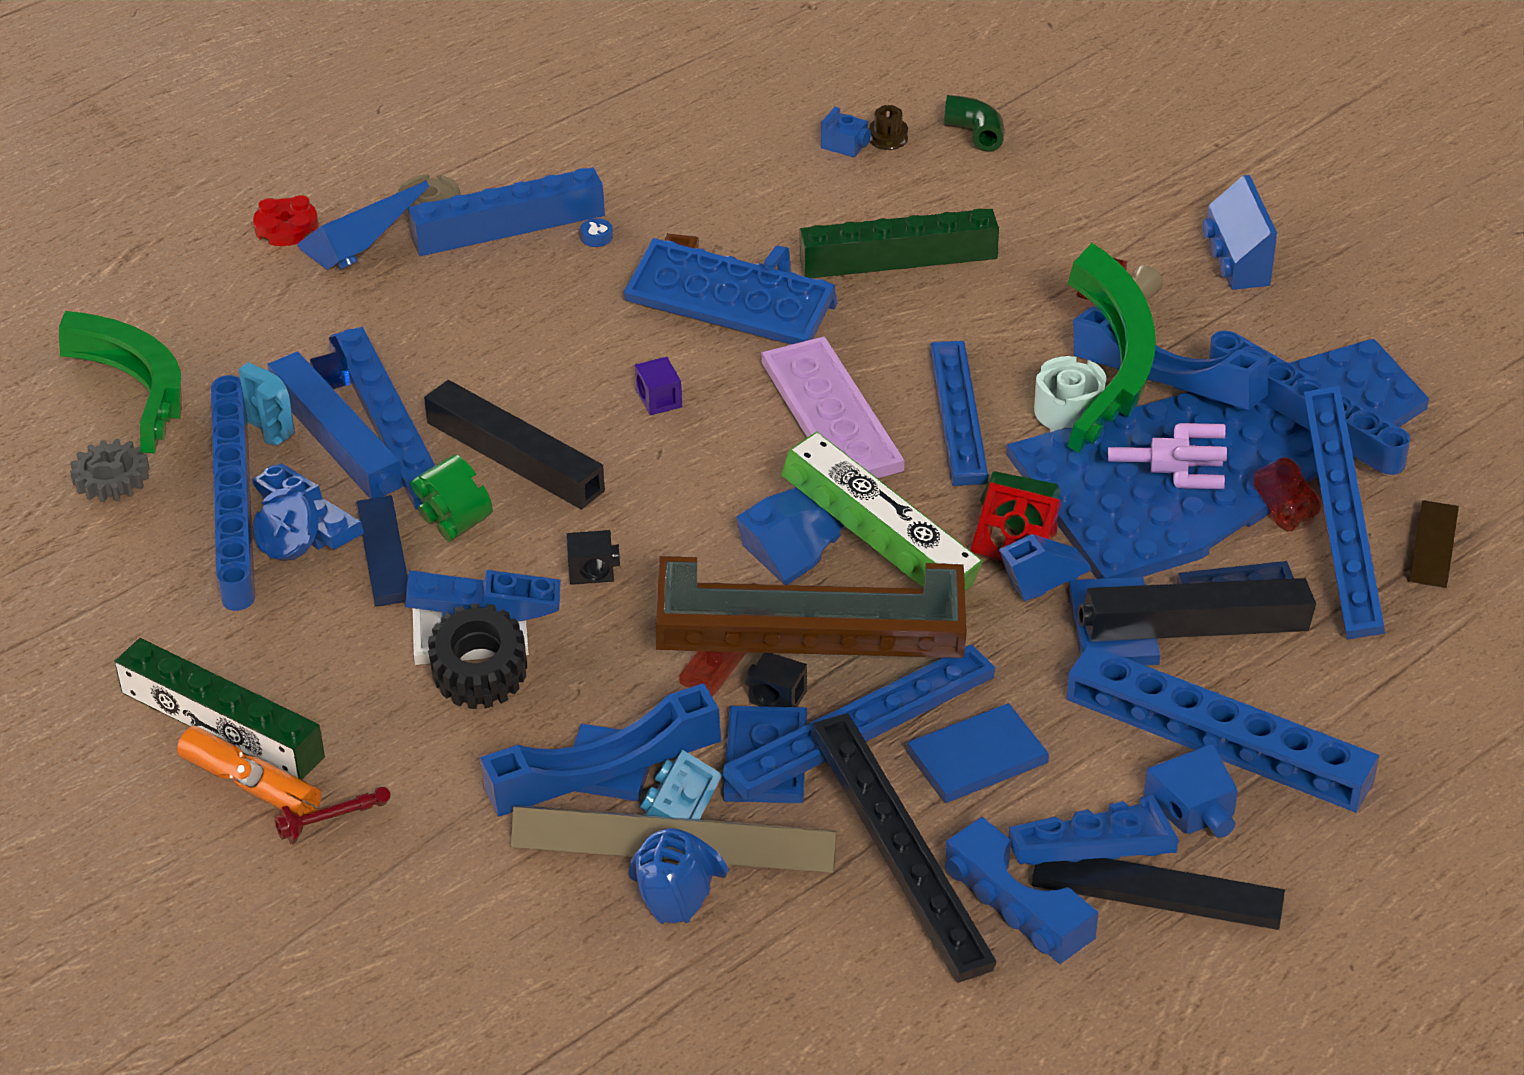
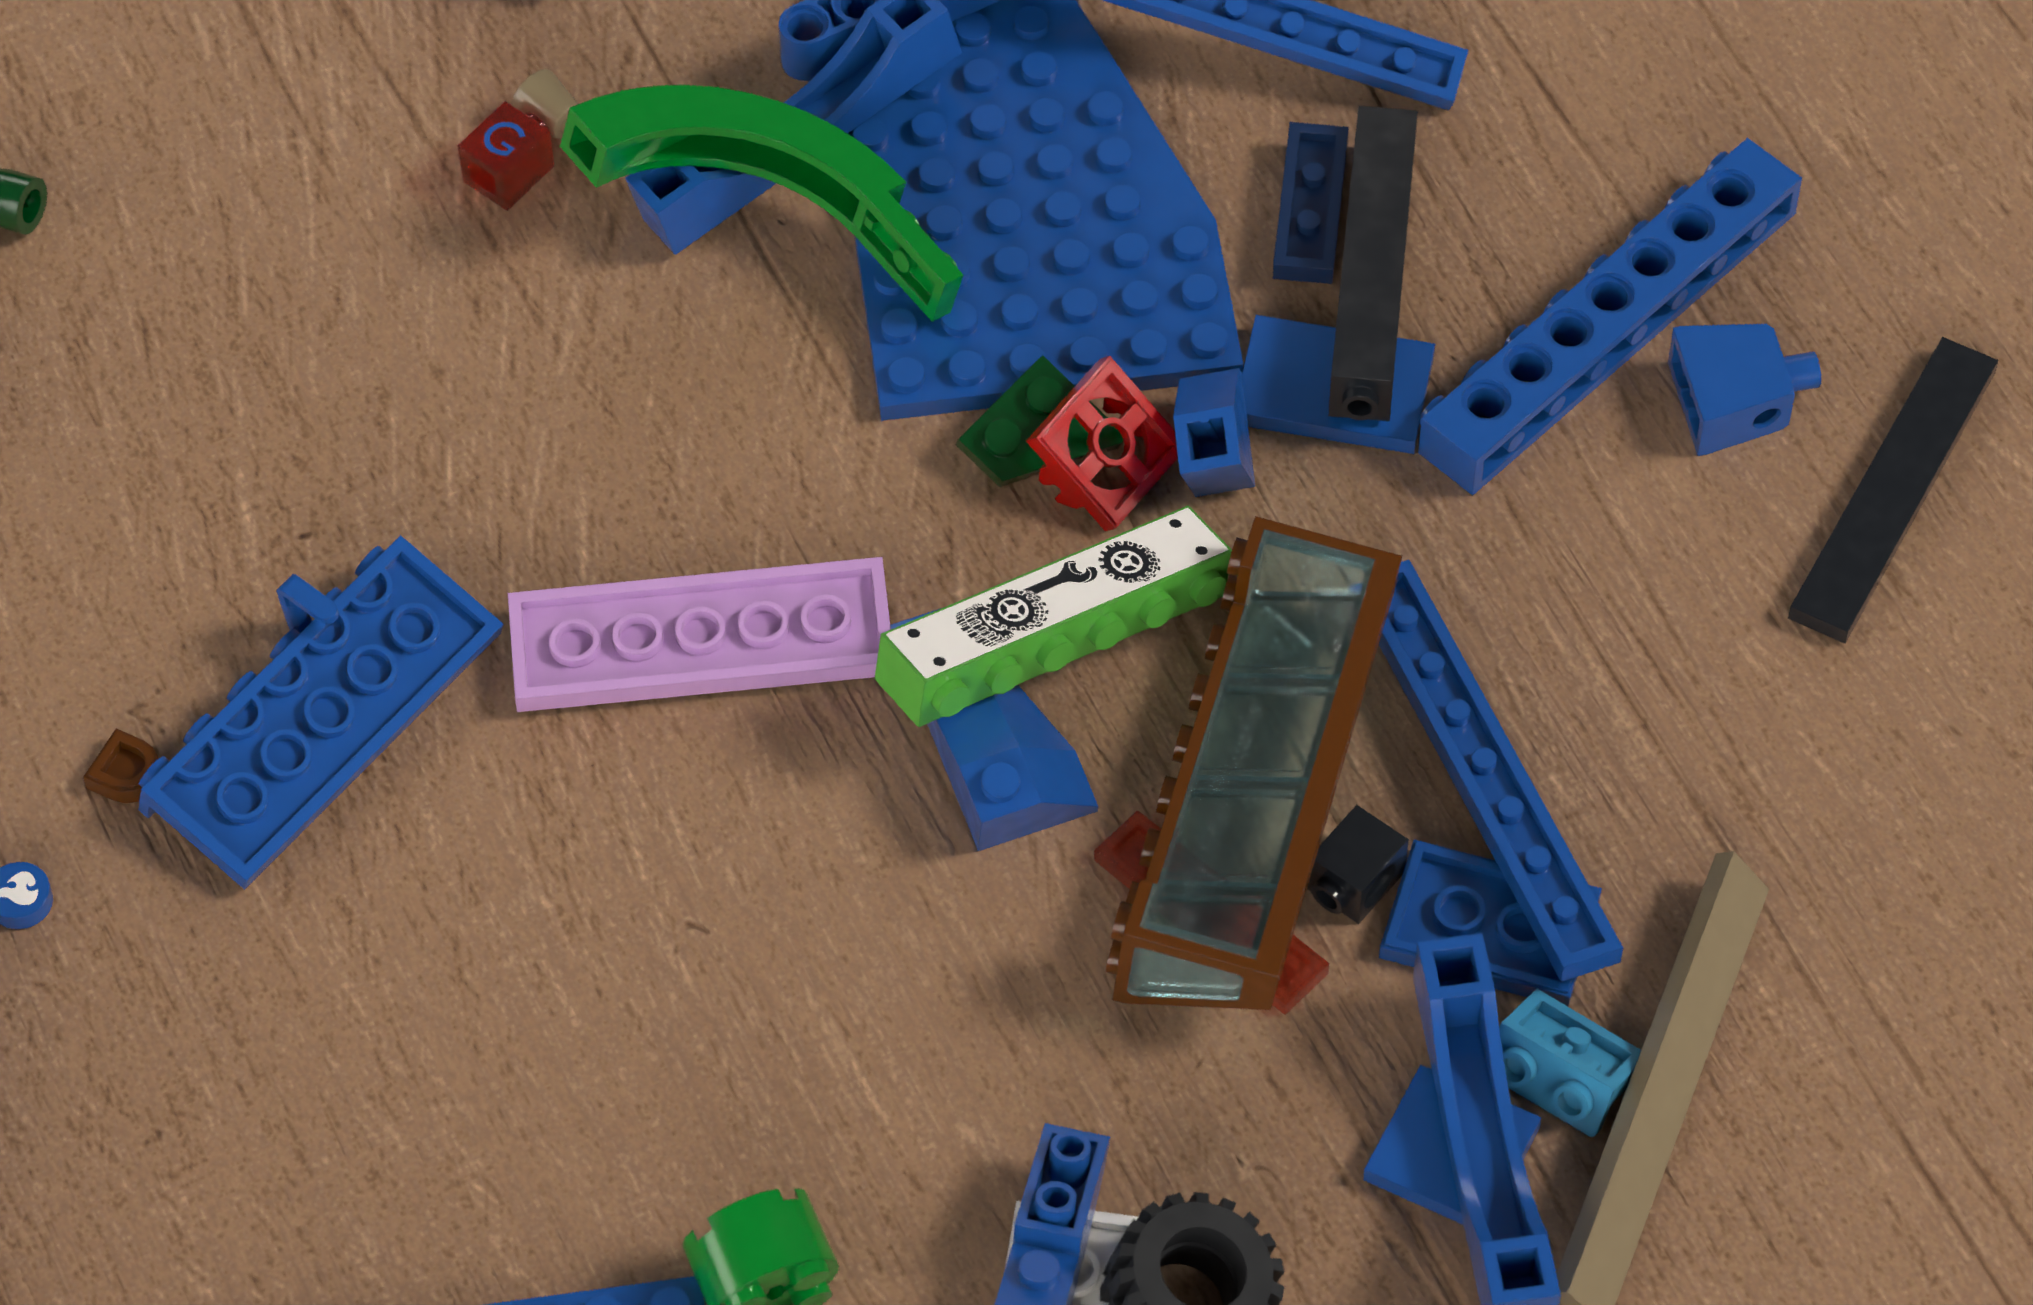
camera: 75 degrees left, 15 degrees up
(515, 444) = (613, 1145): black brick -> none
(591, 557) = (966, 1076): black brick -> none
(658, 385) = (537, 880): dark purple brick -> none
(673, 890) = (1771, 1094): blue piece -> none
(899, 243) = (288, 420): dark green brick -> none
(903, 848) = (1768, 774): black plate -> none
(959, 413) = (757, 455): blue tile -> none
(977, 752) = (1567, 638): blue tile -> none
(1054, 920) = (1809, 684): blue arch -> none
(1066, 391) = (810, 282): light aqua brick -> none
(1109, 835) = (1798, 519): blue wing -> none
(1176, 455) = (1045, 172): lavender plant -> none
(1286, 490) = (1147, 75): clear red piece -> none

